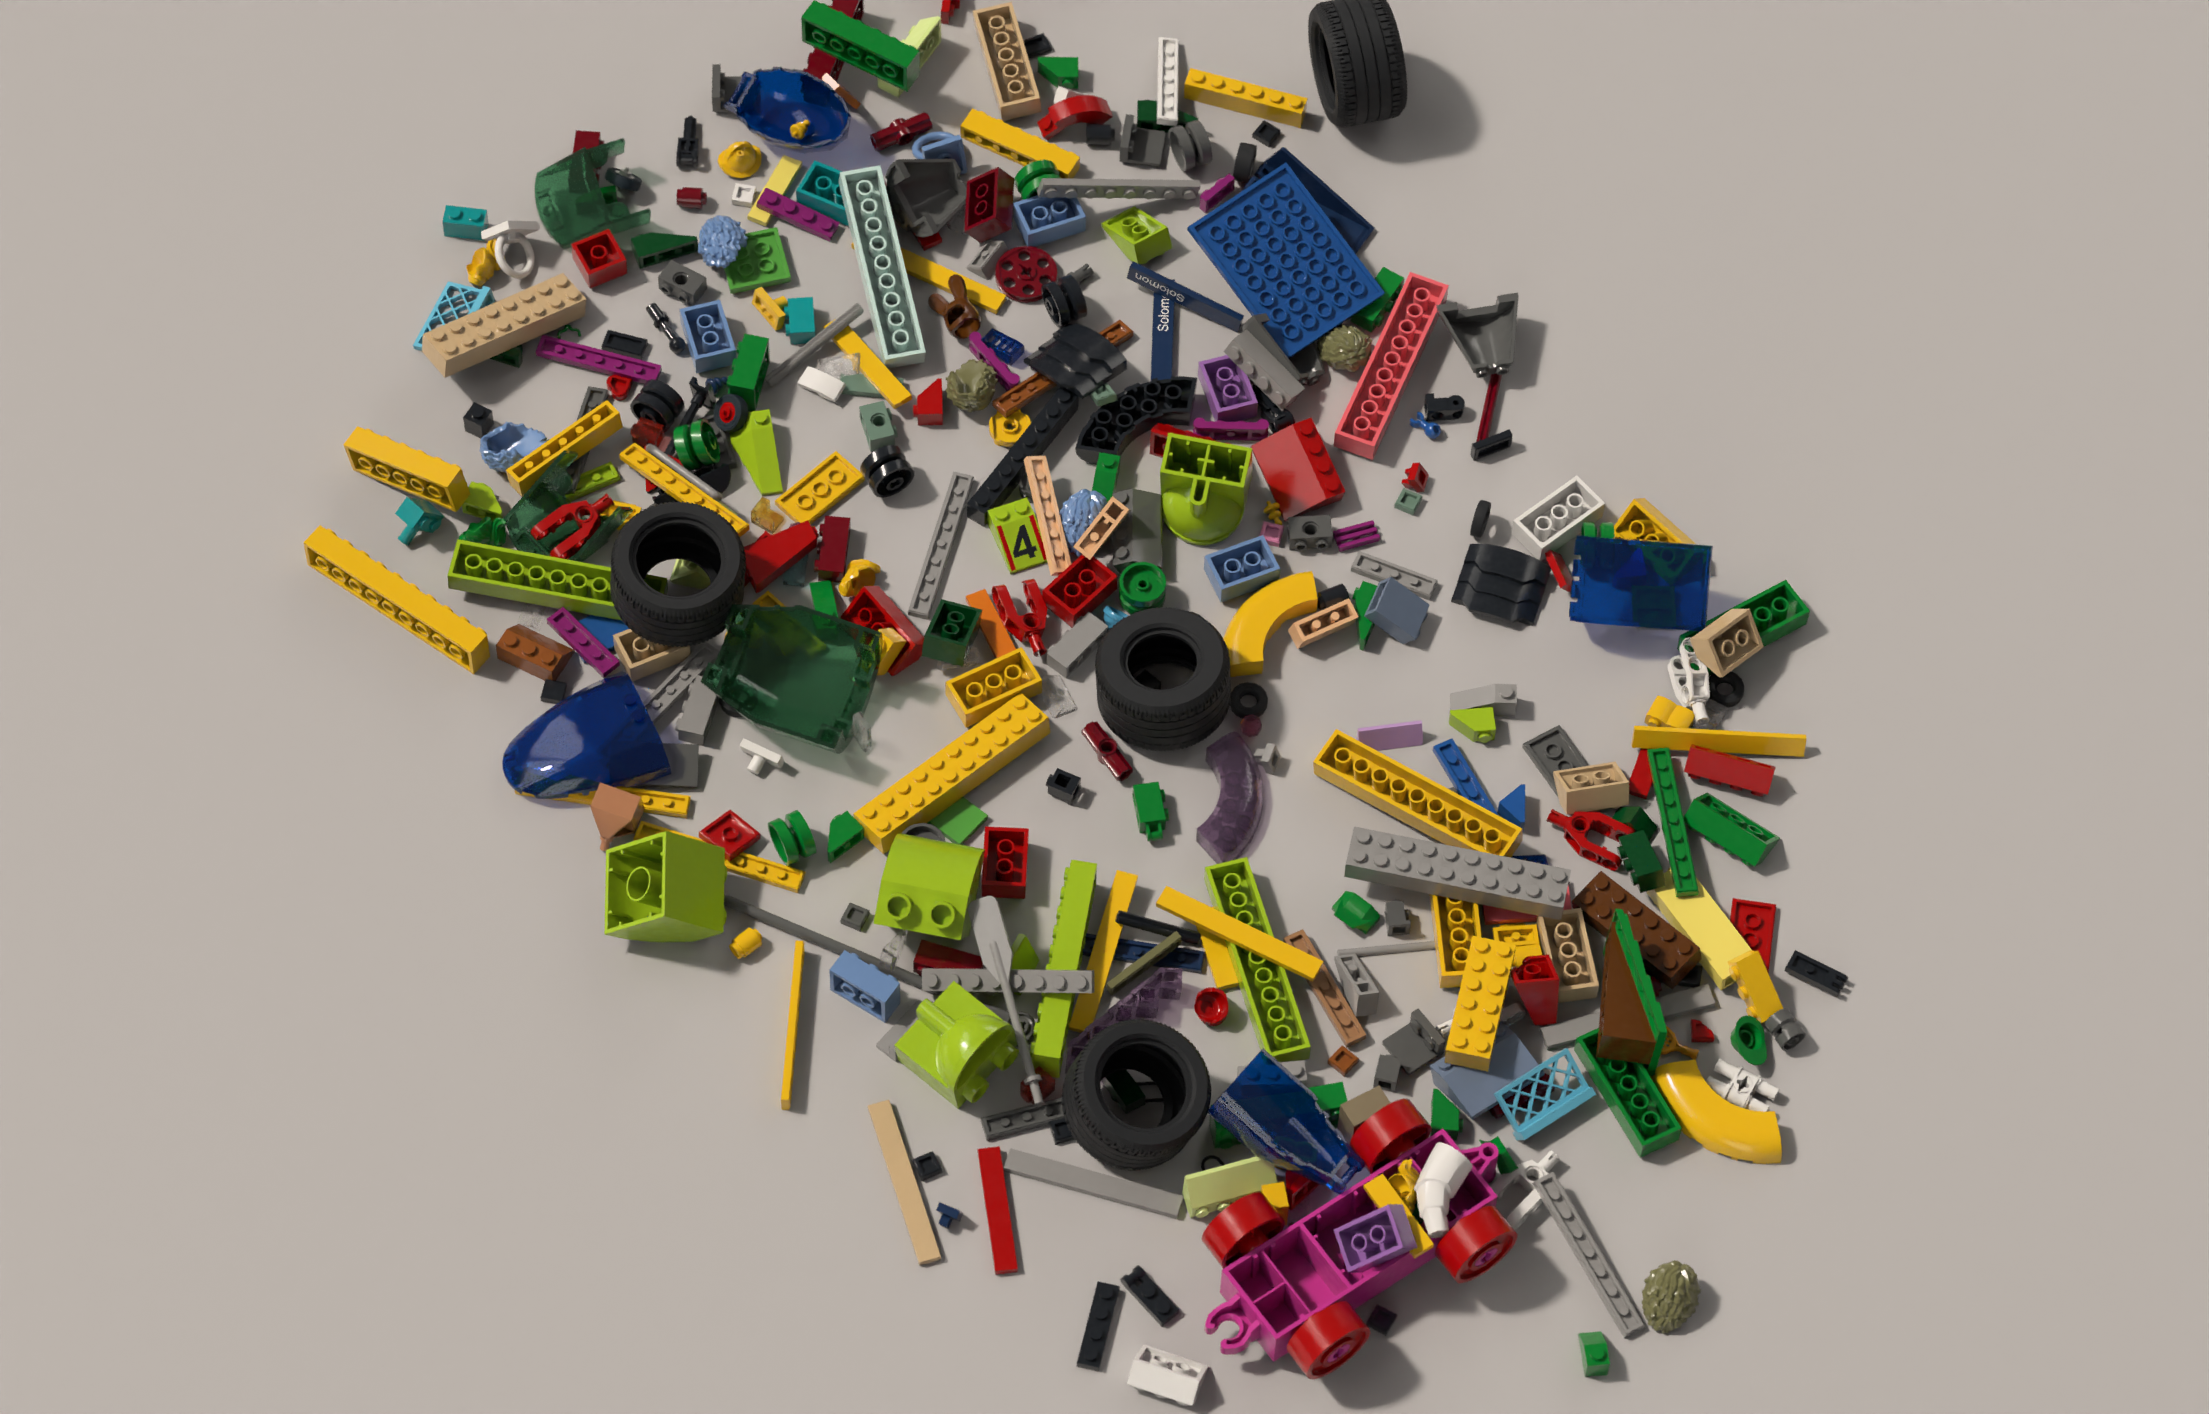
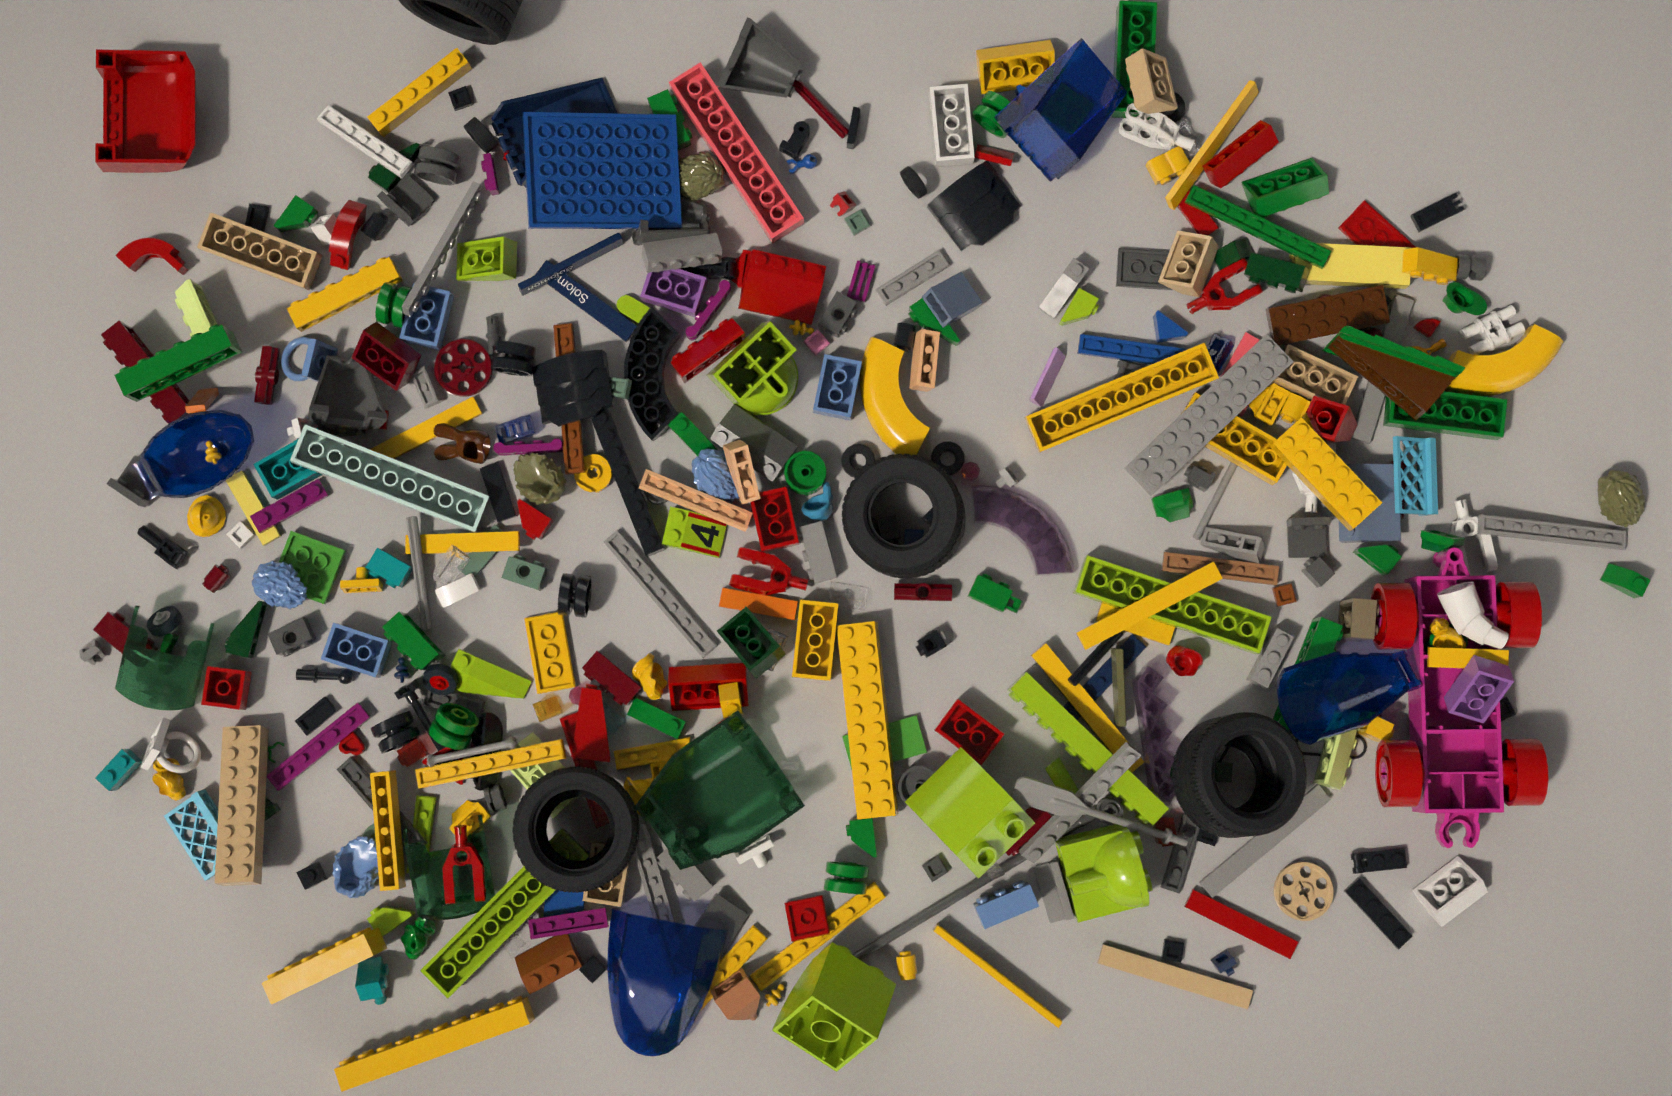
camera: 55 degrees left, 25 degrees up
(554, 142) = (89, 650): none -> light grey tile
(934, 365) = (498, 492): none -> black tile
(1073, 1254) = (1294, 888): none -> tan wedge
(1184, 366) = (631, 308): none -> lime tile

